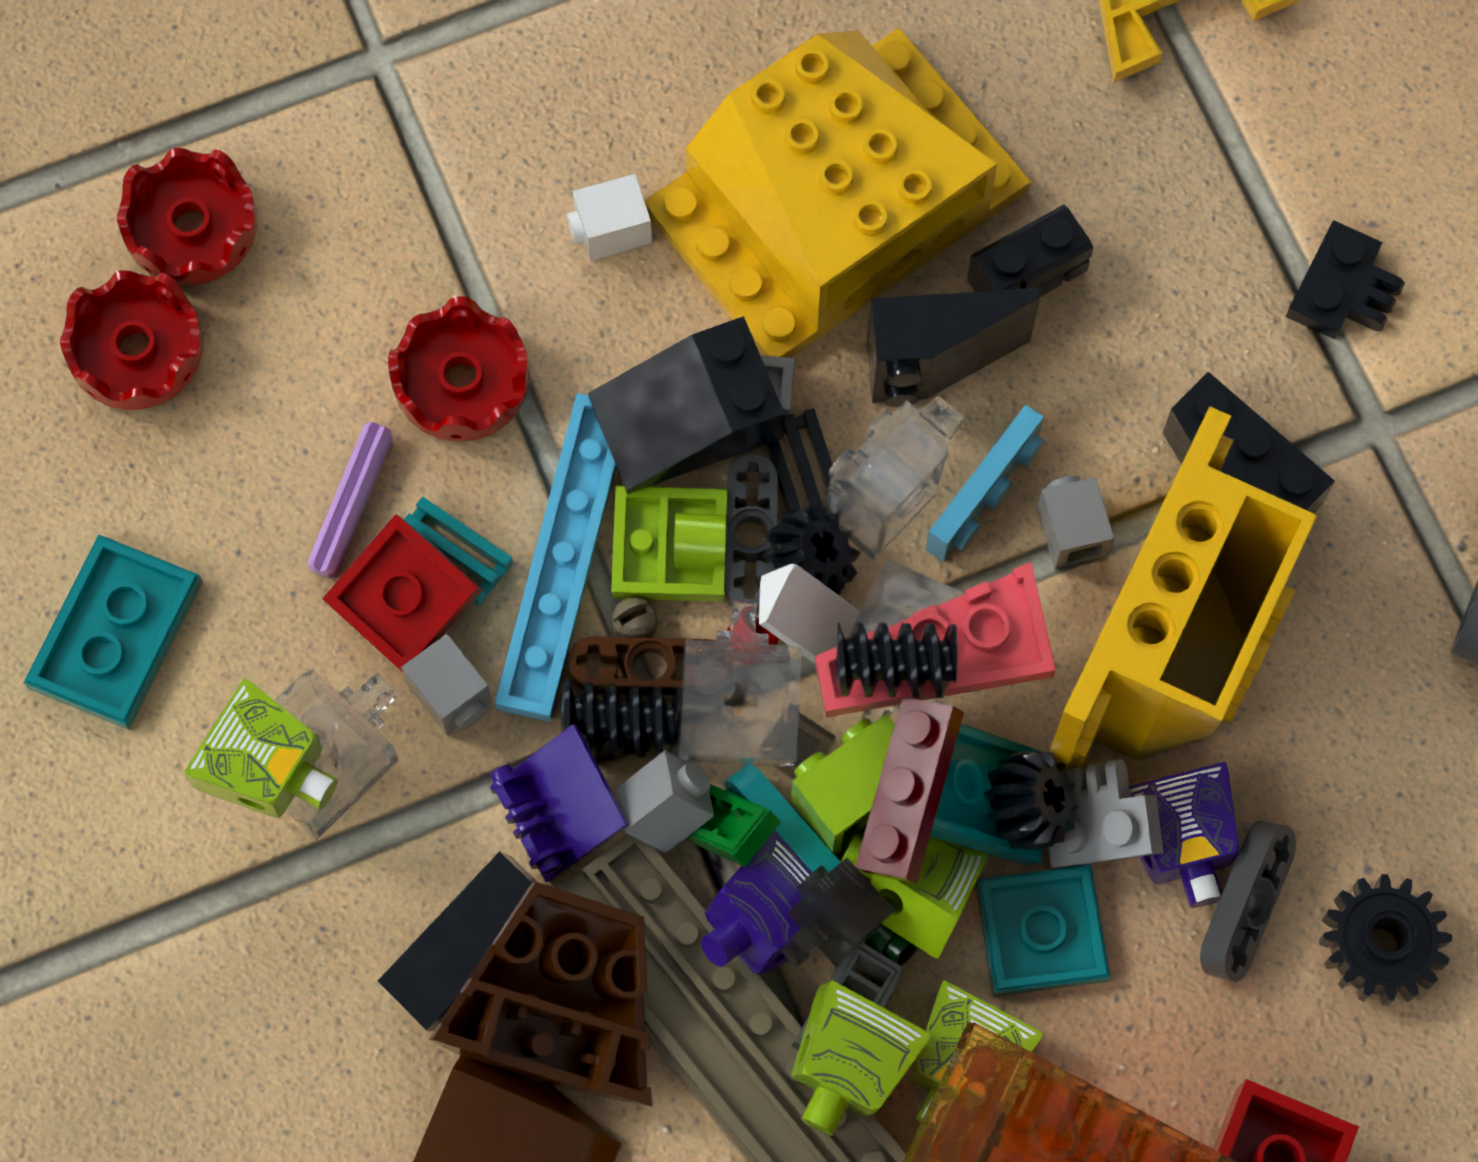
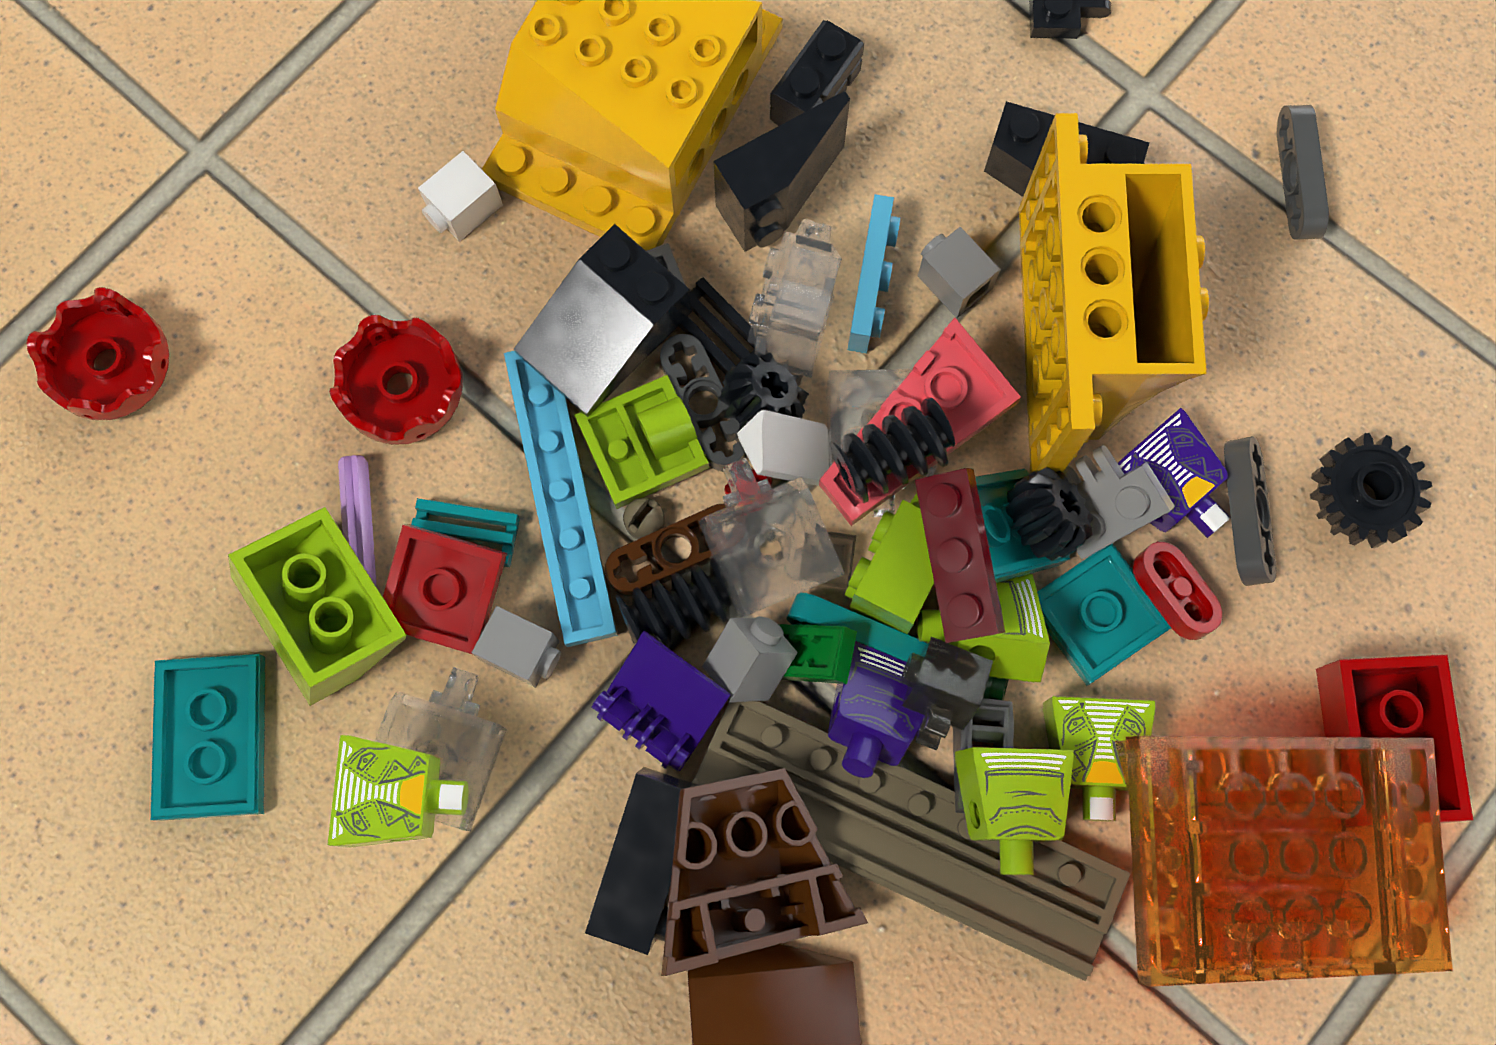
camera: 25 degrees left, 5 degrees up
(127, 306) = (70, 475): red plate -> none
(276, 552) = (316, 604): none -> lime slope
(1132, 945) = (1177, 591): none -> red plate

